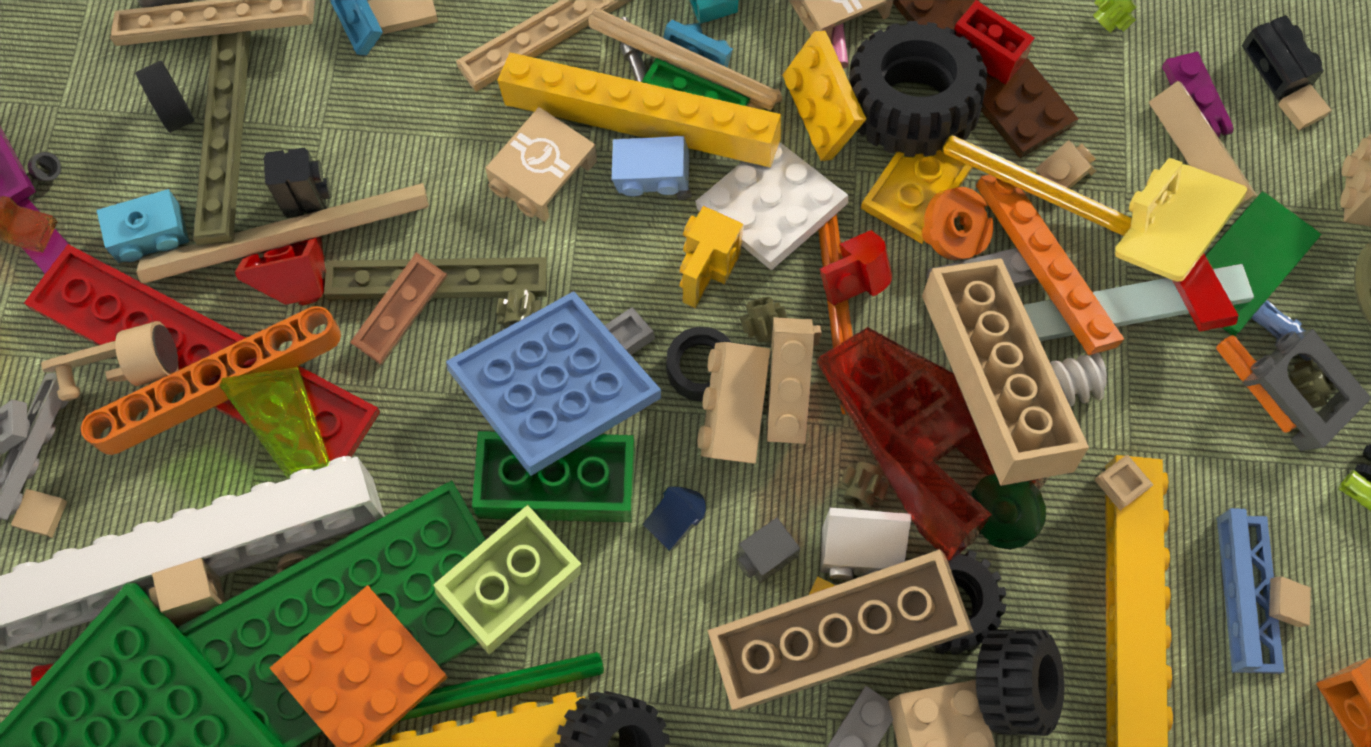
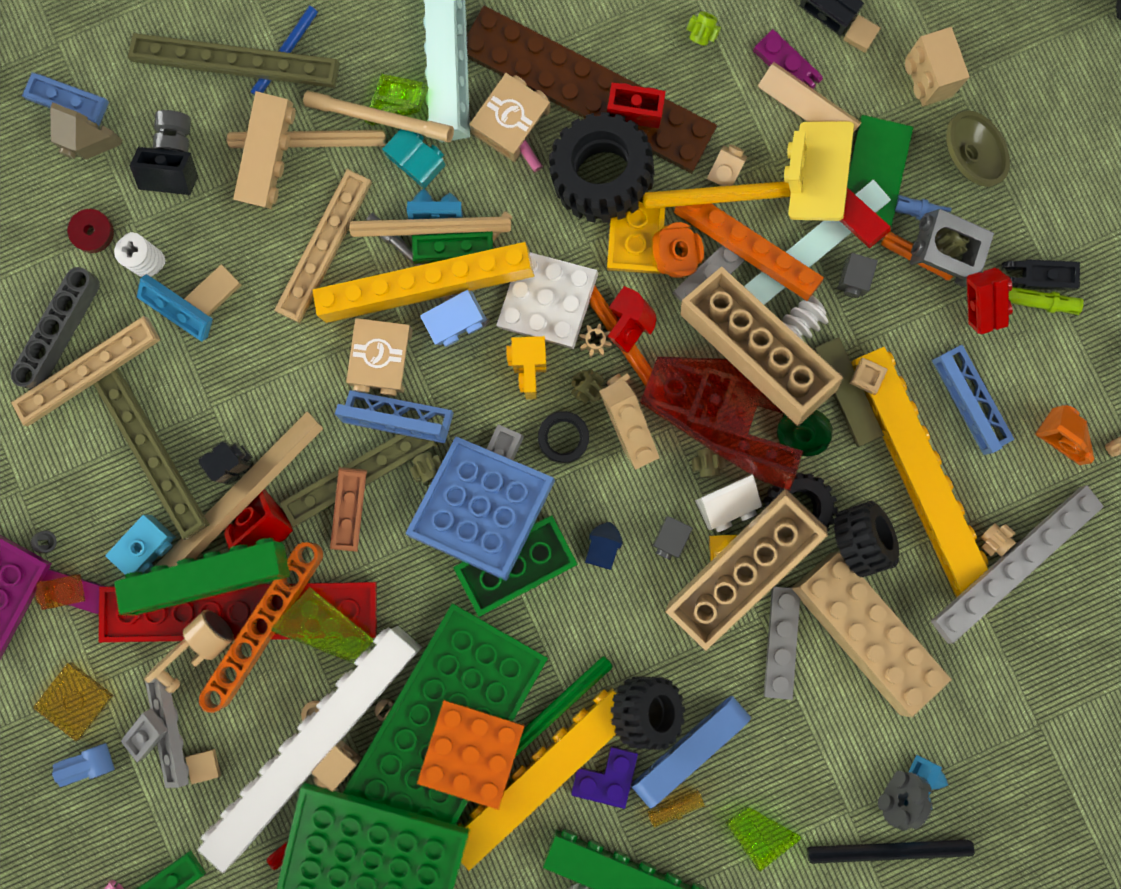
camera: 30 degrees left, 15 degrees up
(164, 96) = (94, 449): black tyre -> none
(183, 284) = (202, 578): none -> green brick
(508, 579) = (528, 650): yellowish green brick -> none
(515, 241) = (395, 422): none -> medium blue fence
(734, 402) = (601, 456): tan brick -> none
(797, 284) = (597, 333): none -> tan gear
(823, 96) = (542, 205): yellow plate -> none
(1089, 507) = (850, 398): none -> olive tile
(1167, 363) = (857, 275): none -> dark grey brick
(1289, 601) = (999, 393): tan tile -> none
(1328, 474) = (988, 300): none -> red brick

